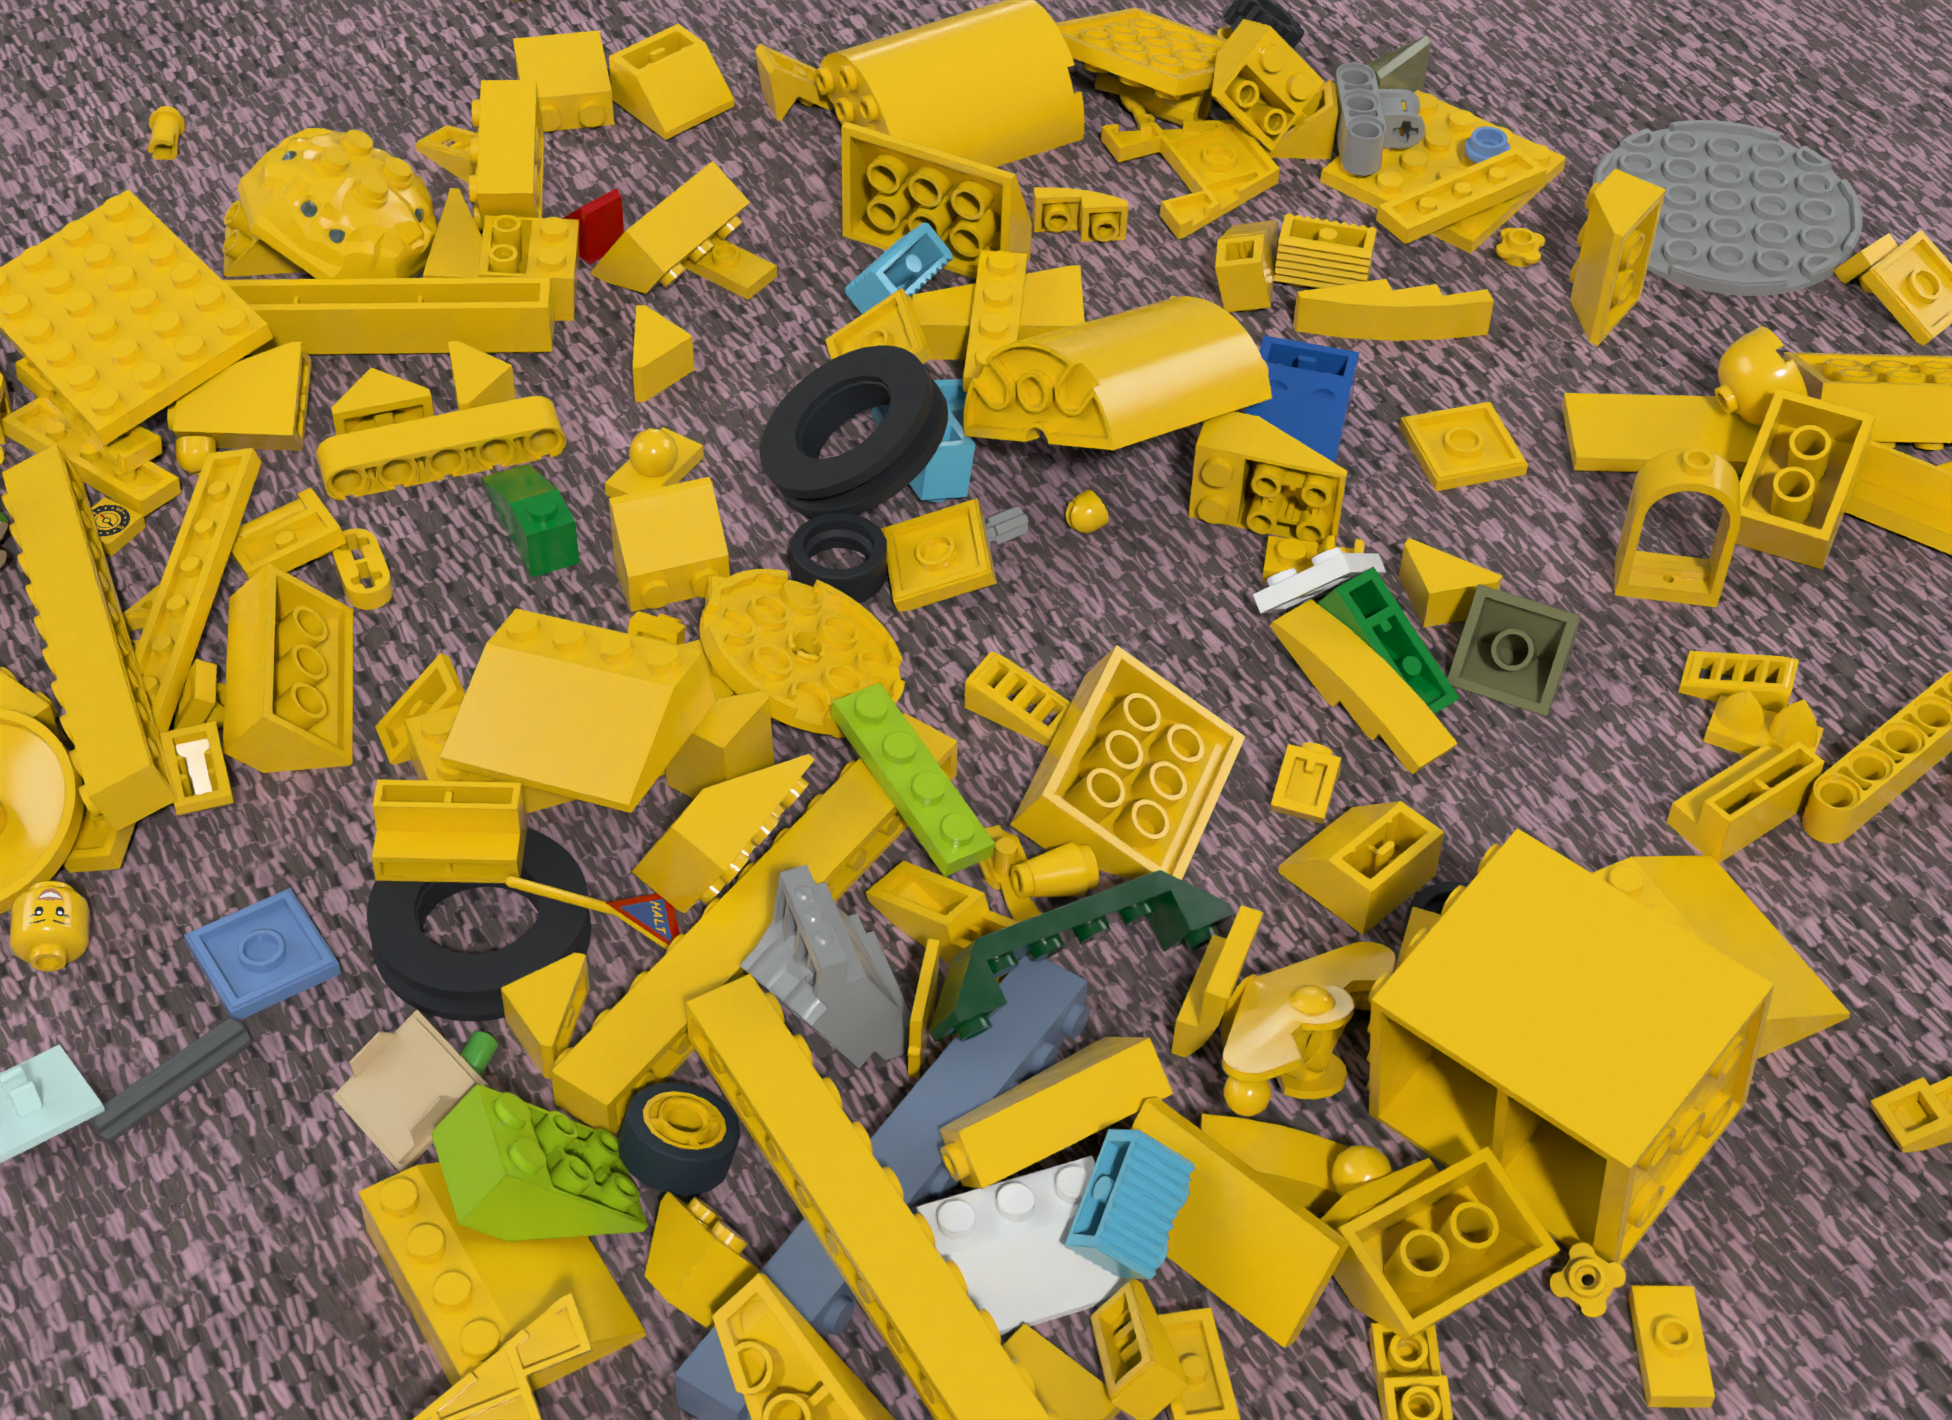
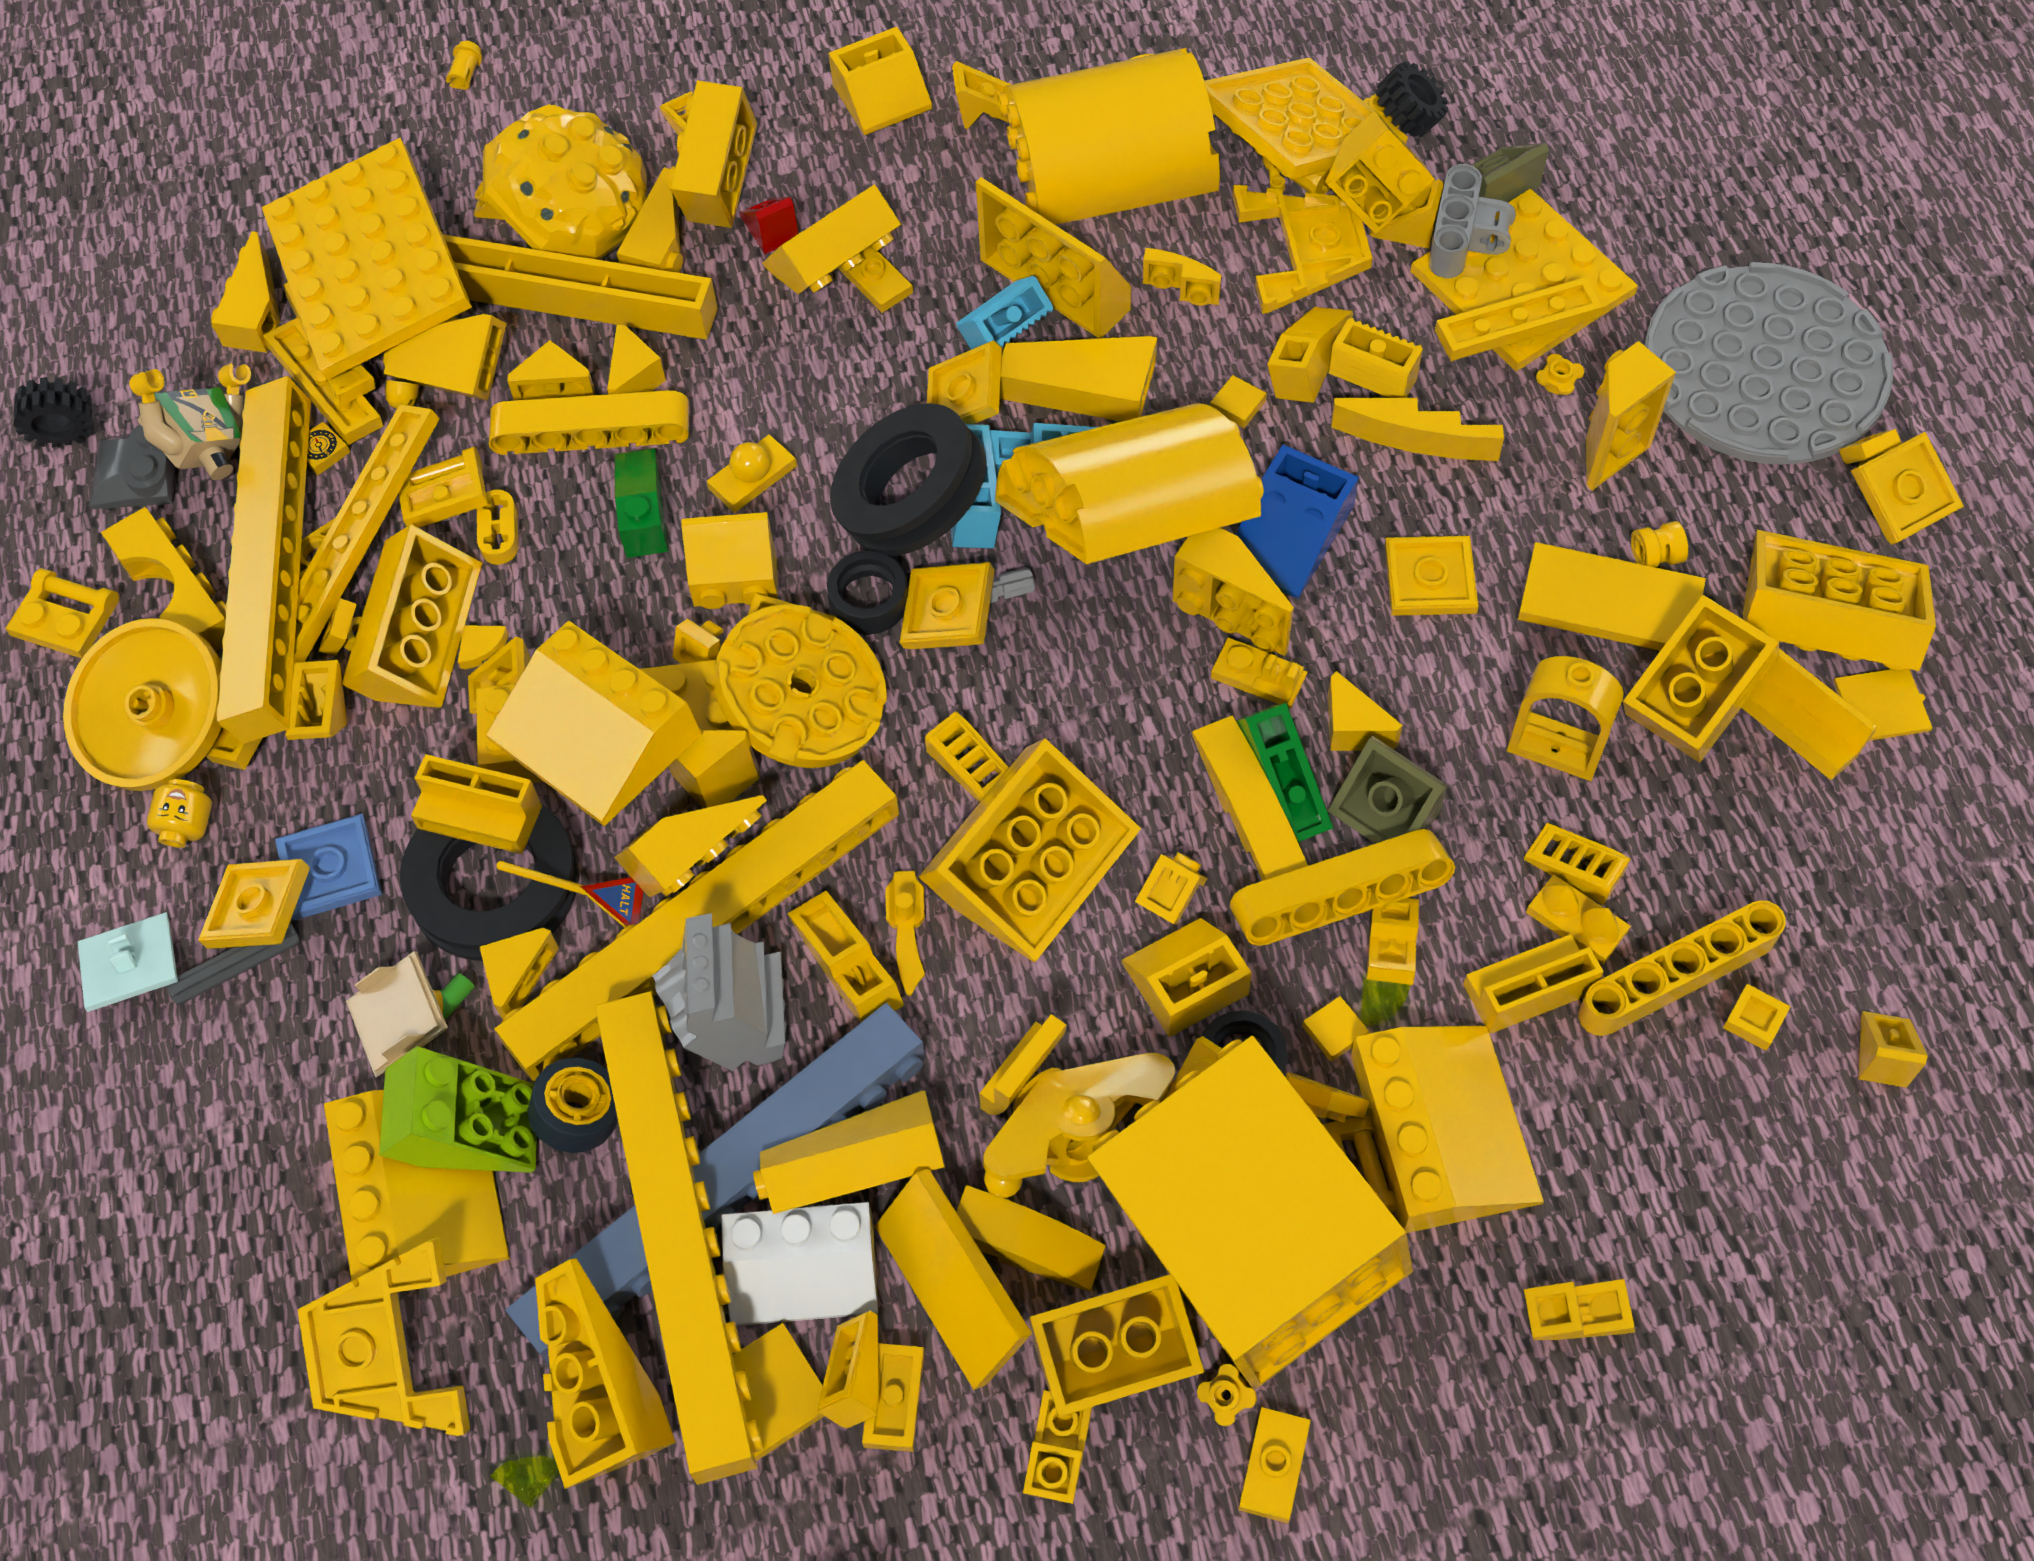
camera: 20 degrees right, 15 degrees up
(182, 1005) = (254, 904): none -> yellow tile
(381, 689) = (480, 643): none -> yellow tile
(534, 249) = (711, 247): yellow slope -> none
(569, 78) = (793, 64): yellow brick -> none
(660, 353) = (784, 362): yellow slope -> none
(696, 1259) = (553, 1214): yellow slope -> none
(912, 779) = (845, 827): lime plate -> none
(923, 1008) = (790, 1035): yellow piece -> none
(995, 307) = (1064, 380): yellow plate -> none
(1057, 873) = (939, 929): yellow cone -> none
(1086, 512) = (1083, 585): yellow hinge -> none
(1130, 1204) = (876, 1258): medium azure brick -> none
(1173, 907) = (816, 1044): dark green slope -> none
(1328, 572) = (1250, 696): white wing -> none
(1366, 1181) = (1076, 1272): yellow tile -> none
(1486, 143) = (1562, 267): medium blue plate -> none
(1498, 745) = (1341, 887): none -> yellow beam
(1573, 790) = (1393, 942): none -> yellow slope
(1587, 847) = (1381, 1001): none -> clear neon green tile
(1693, 376) = (1660, 545): none -> yellow wheel
(1751, 374) = (1700, 570): yellow cylinder -> none

